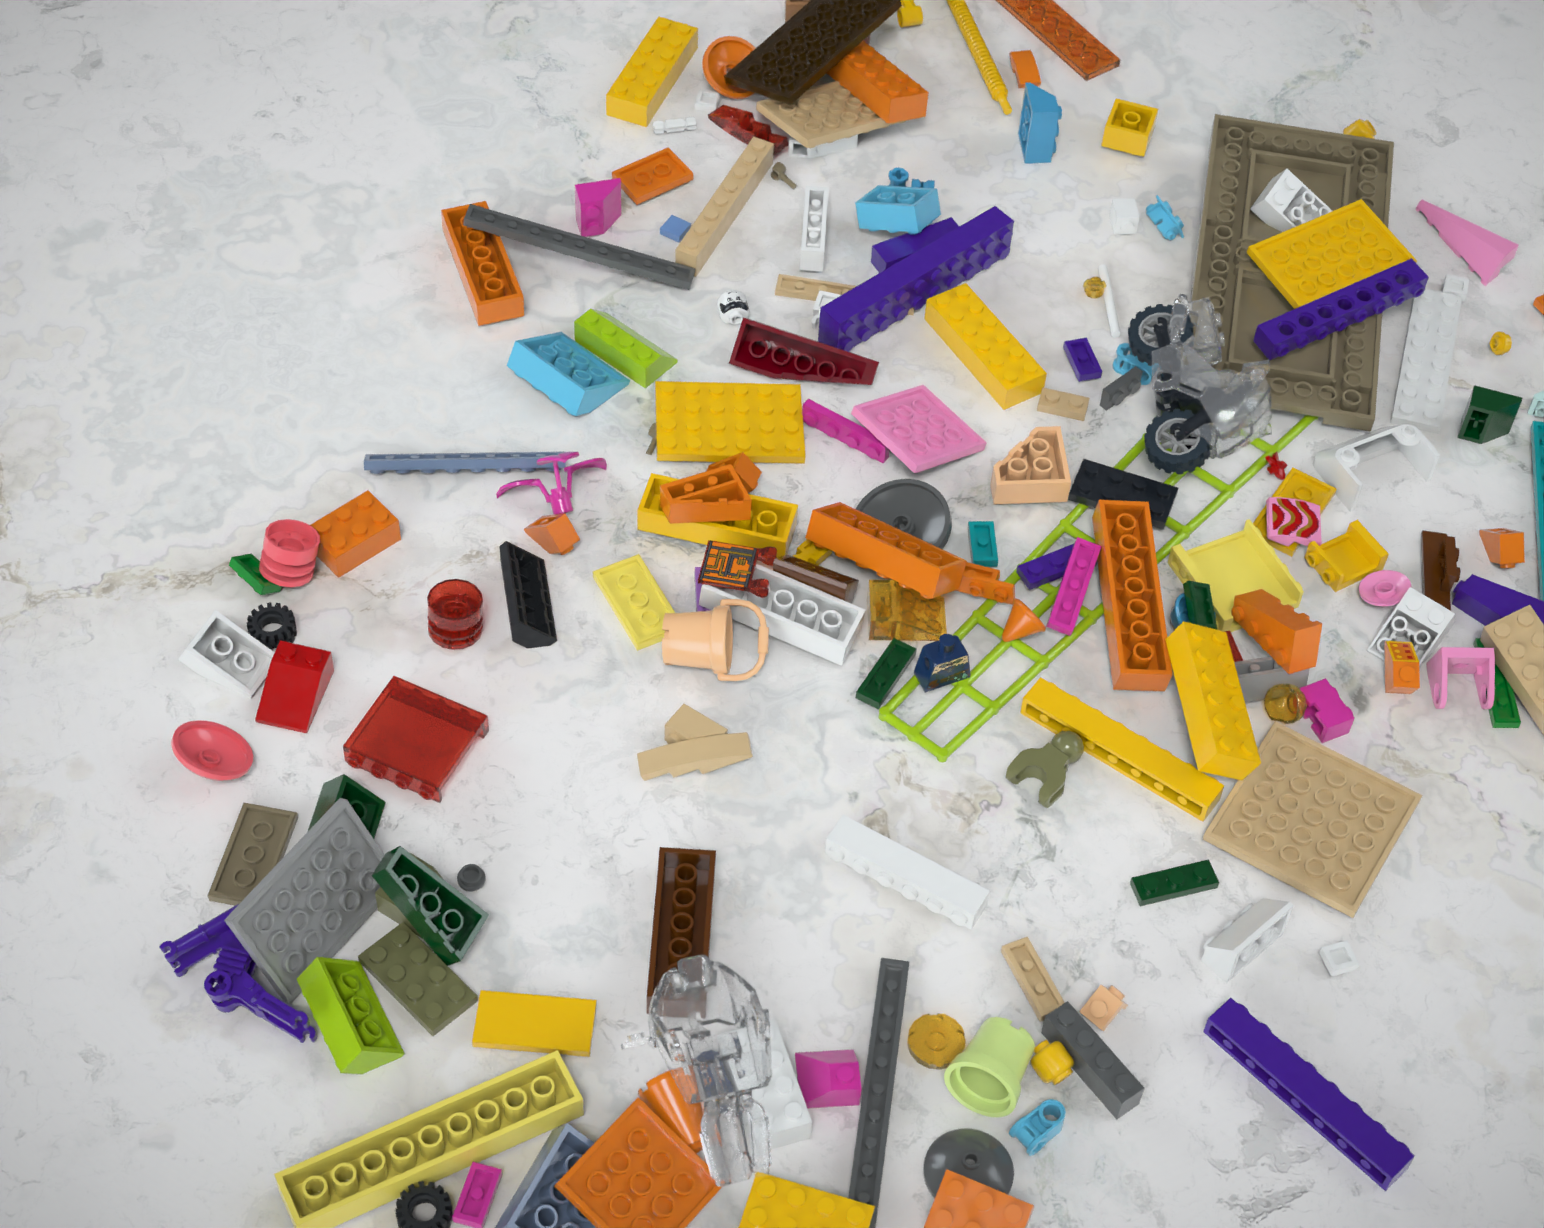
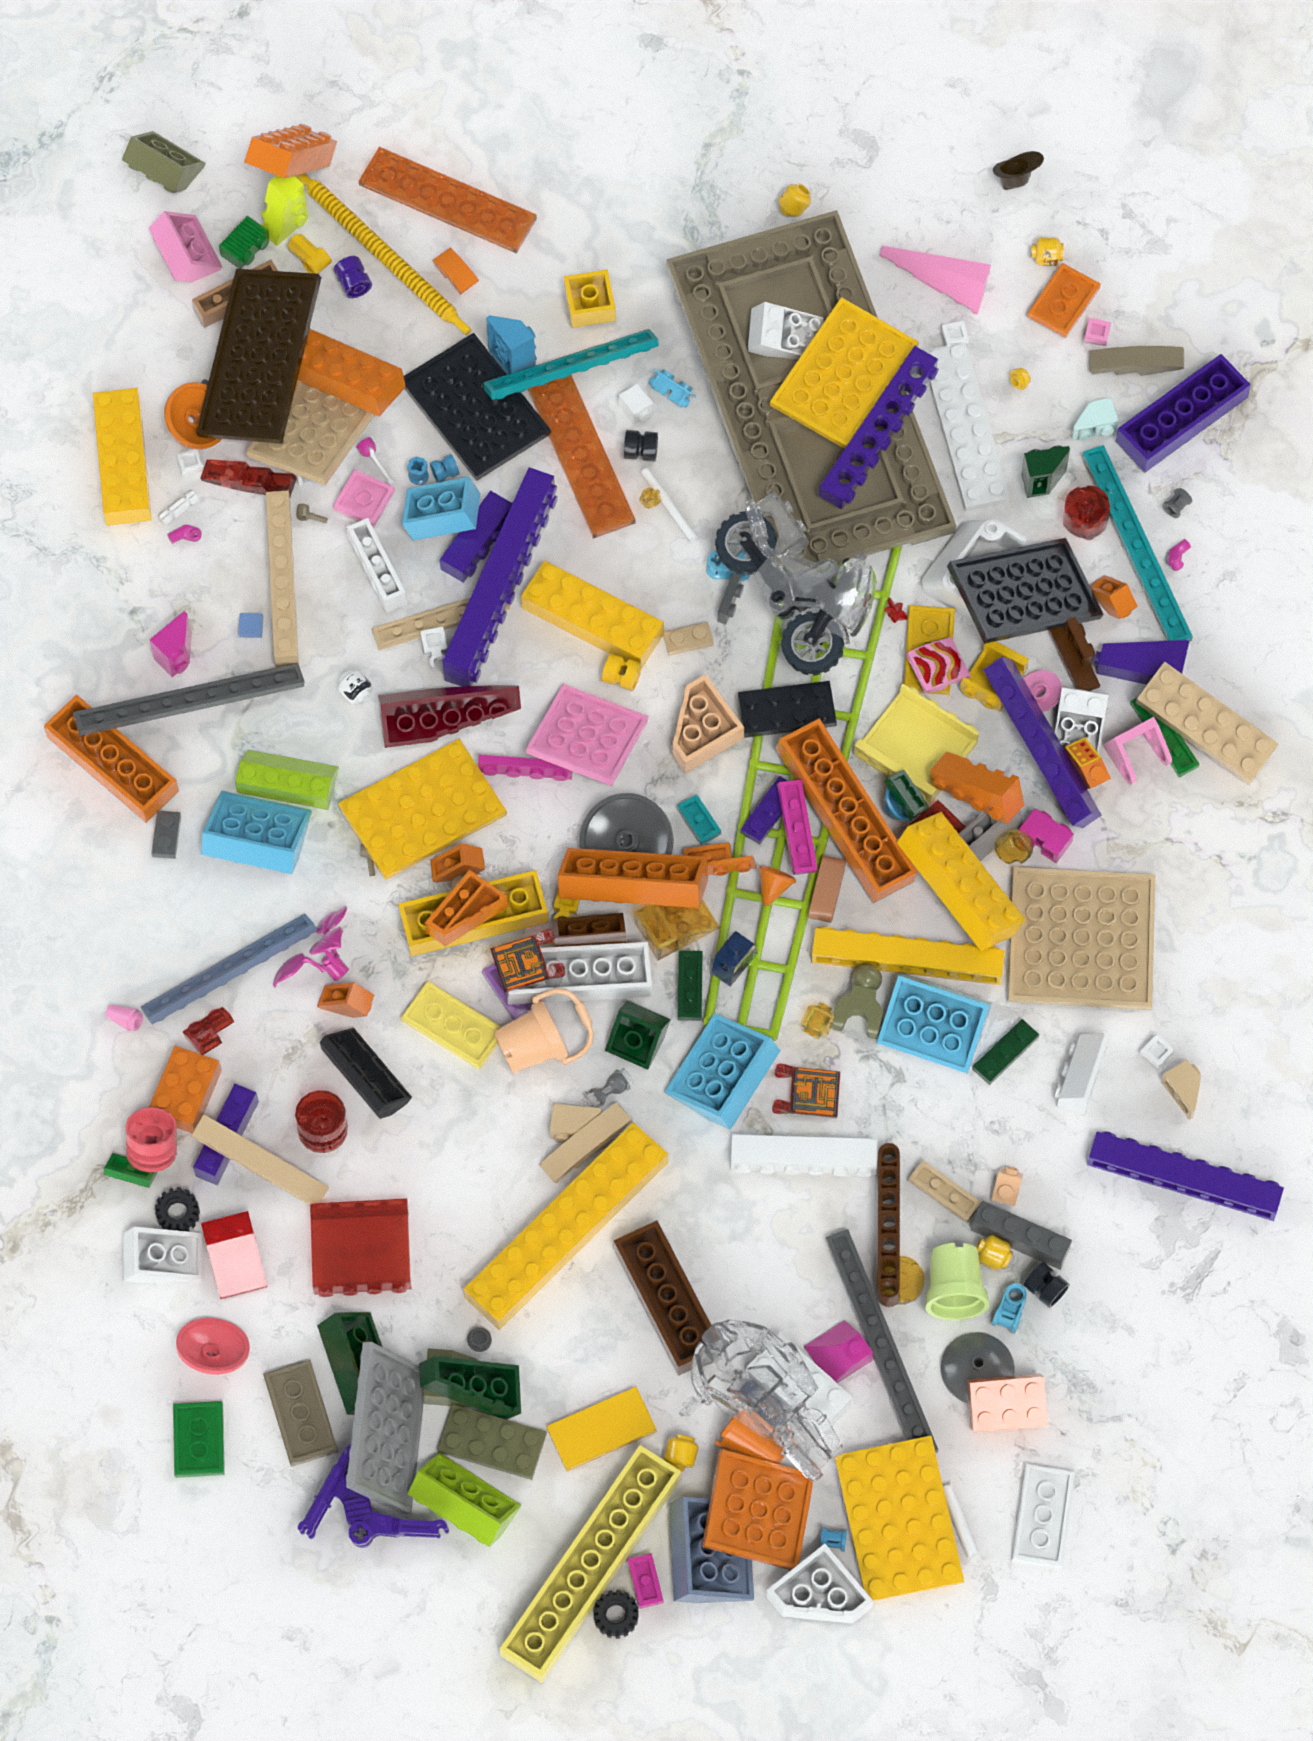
camera: 25 degrees left, 15 degrees up
(141, 830) = (198, 1439): none -> green tile
(347, 456) = (125, 1017): none -> bright pink cone
(362, 586) = (235, 1116): none -> dark purple brick
(372, 616) = (259, 1161): none -> tan tile
(401, 497) = (203, 1033): none -> clear red plate
(489, 341) = (166, 834): none -> dark grey plate
(599, 1086) = (681, 1452): none -> yellow head
(624, 817) = (566, 1226): none -> yellow brick
(653, 175) = (195, 577): orange plate -> none
(664, 142) = (185, 532): none -> dark pink arm
(758, 720) = (616, 1084): none -> clear piece
(807, 688) = (637, 1034): none -> dark green slope
(841, 180) = (364, 498): none -> bright pink plate
(866, 155) = (368, 448): none -> hinge
(871, 758) = (723, 1070): none -> medium azure slope
(933, 35) = (352, 277): none -> dark purple wheel
(948, 822) = (812, 1091): none -> flag
(976, 945) = (889, 1235): none -> reddish brown beam
(979, 162) = (475, 427): none -> black plate
(983, 398) = (613, 672): none -> yellow wheel
(993, 760) = (817, 1020): none -> clear yellow head
(1052, 234) = (582, 456): none -> clear orange plate
(1073, 655) = (827, 889): none -> nougat beam
(1074, 162) = (570, 364): none -> teal plate
(1082, 359) = (681, 583): dark purple plate -> none
(1092, 1123) = (1047, 1285): none -> black wheel
(1108, 244) = (640, 445): none -> black wheel
(1113, 818) = (934, 1022): none -> medium azure slope
(1351, 1004) = (1183, 1086): none -> tan slope
(1364, 629) = (1042, 742): none -> dark purple brick
(1414, 495) = (1024, 590): none -> black plate
(1511, 466) = (1086, 512): none -> clear red brick

